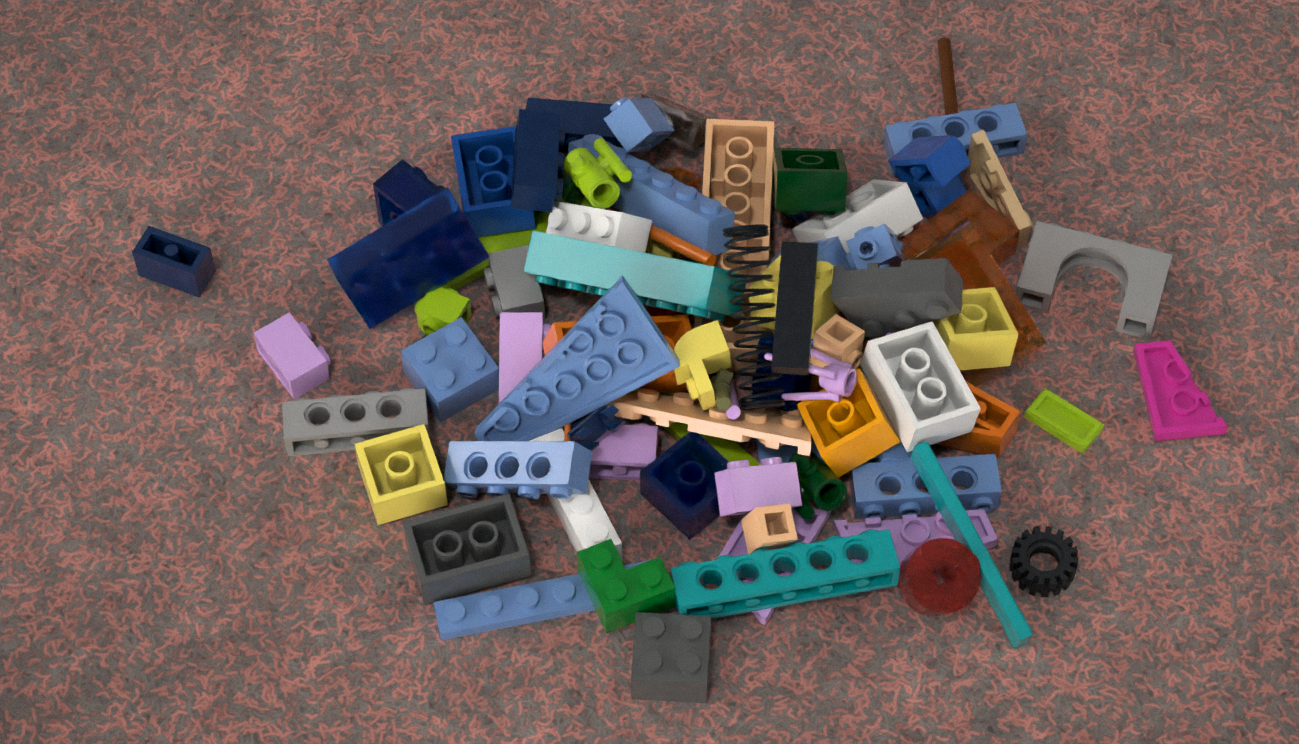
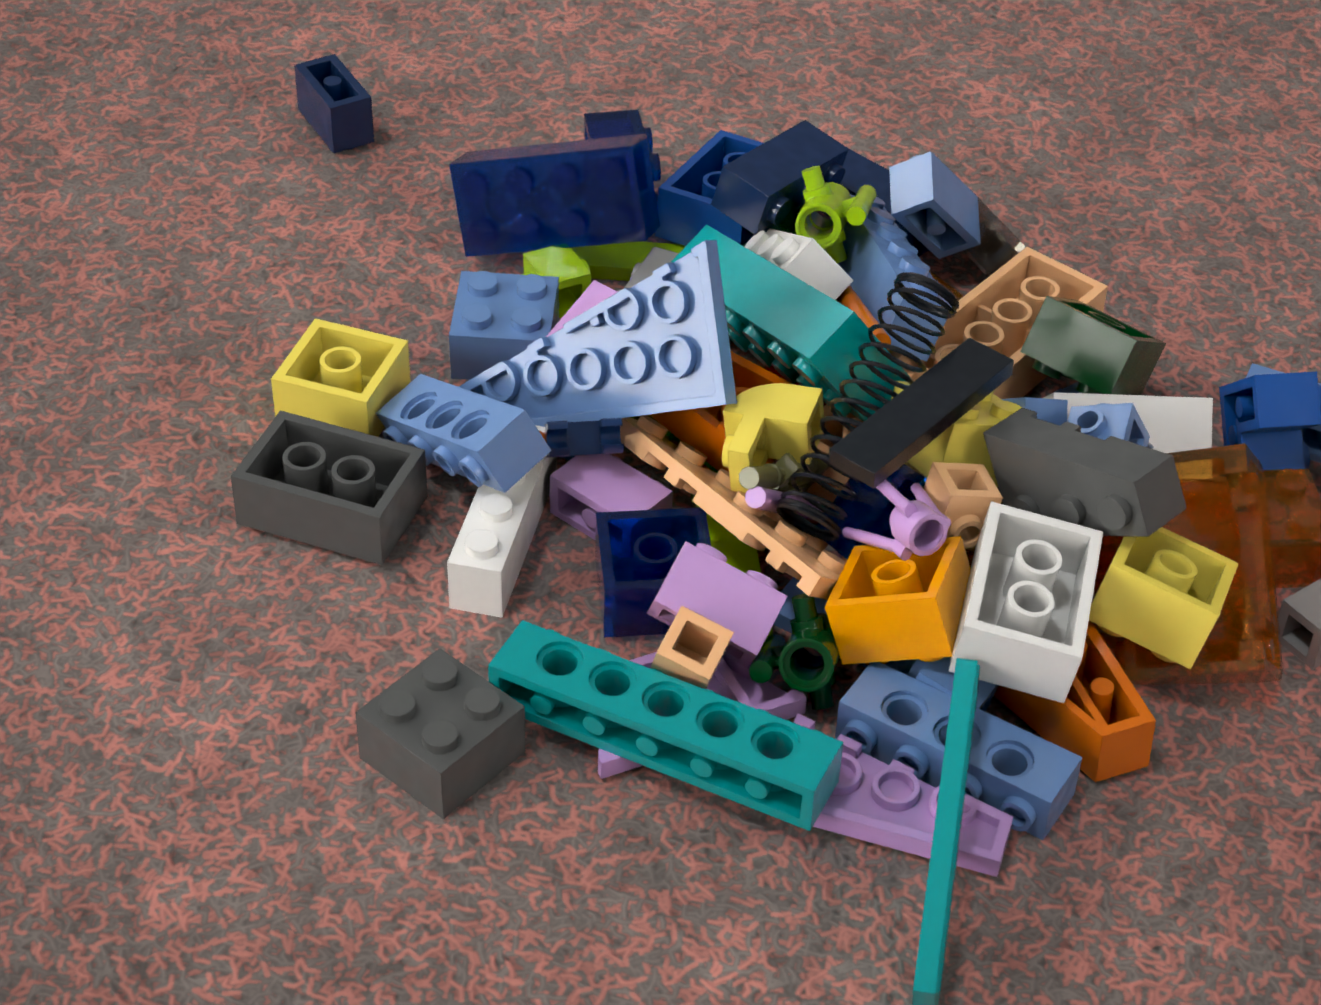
camera: 35 degrees right, 15 degrees down
(292, 355) = (361, 235): lavender brick -> none
(341, 433) = (307, 291): light grey brick -> none
(513, 606) = (366, 594): medium blue plate -> none
(620, 591) = (449, 608): green brick -> none
(958, 568) = (876, 813): clear red brick -> none
(1048, 543) = (1040, 957): black tyre -> none
(1064, 421) = (1228, 794): lime tile -> none

